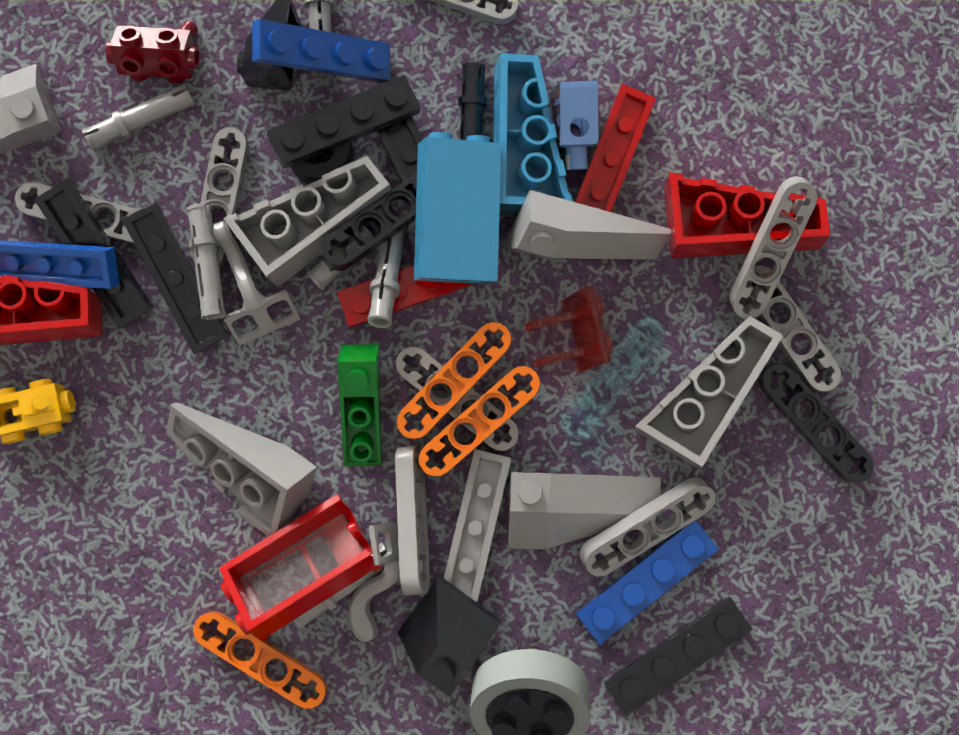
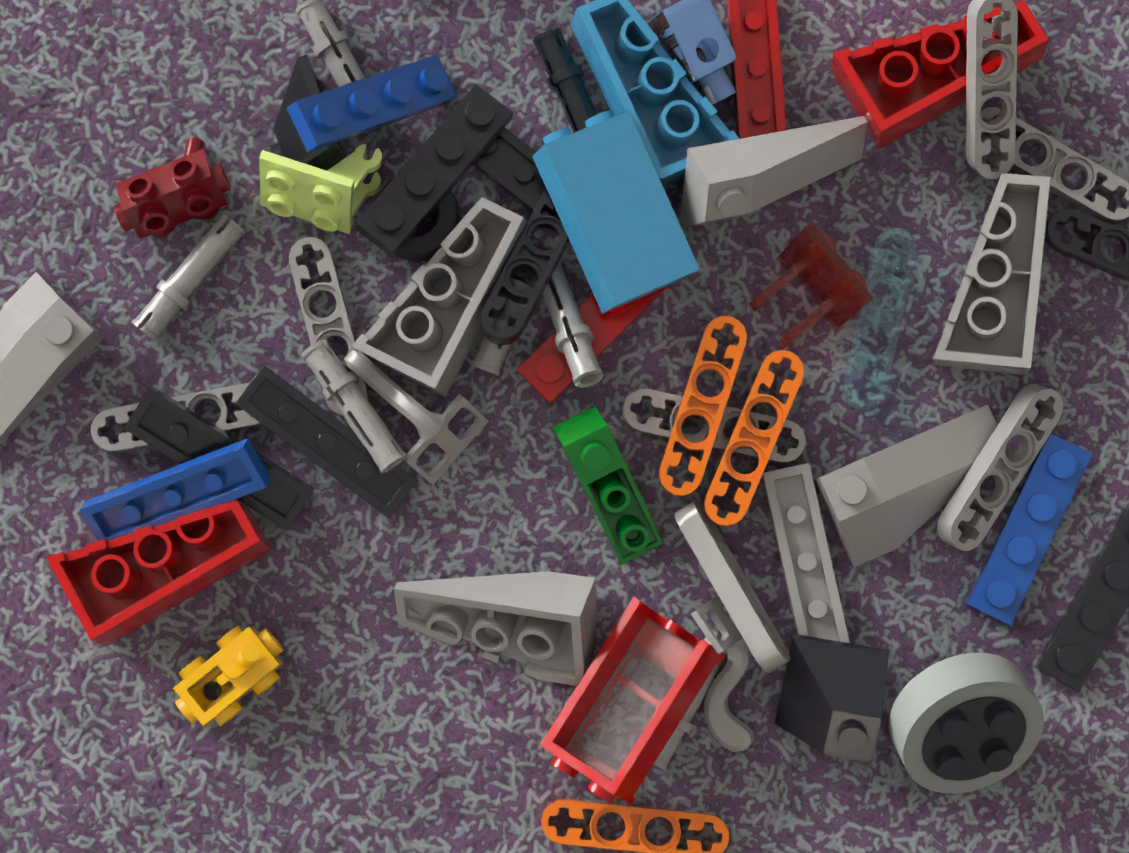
camera: 20 degrees left, 0 degrees up
(258, 103) = (318, 195): none -> yellowish green plate

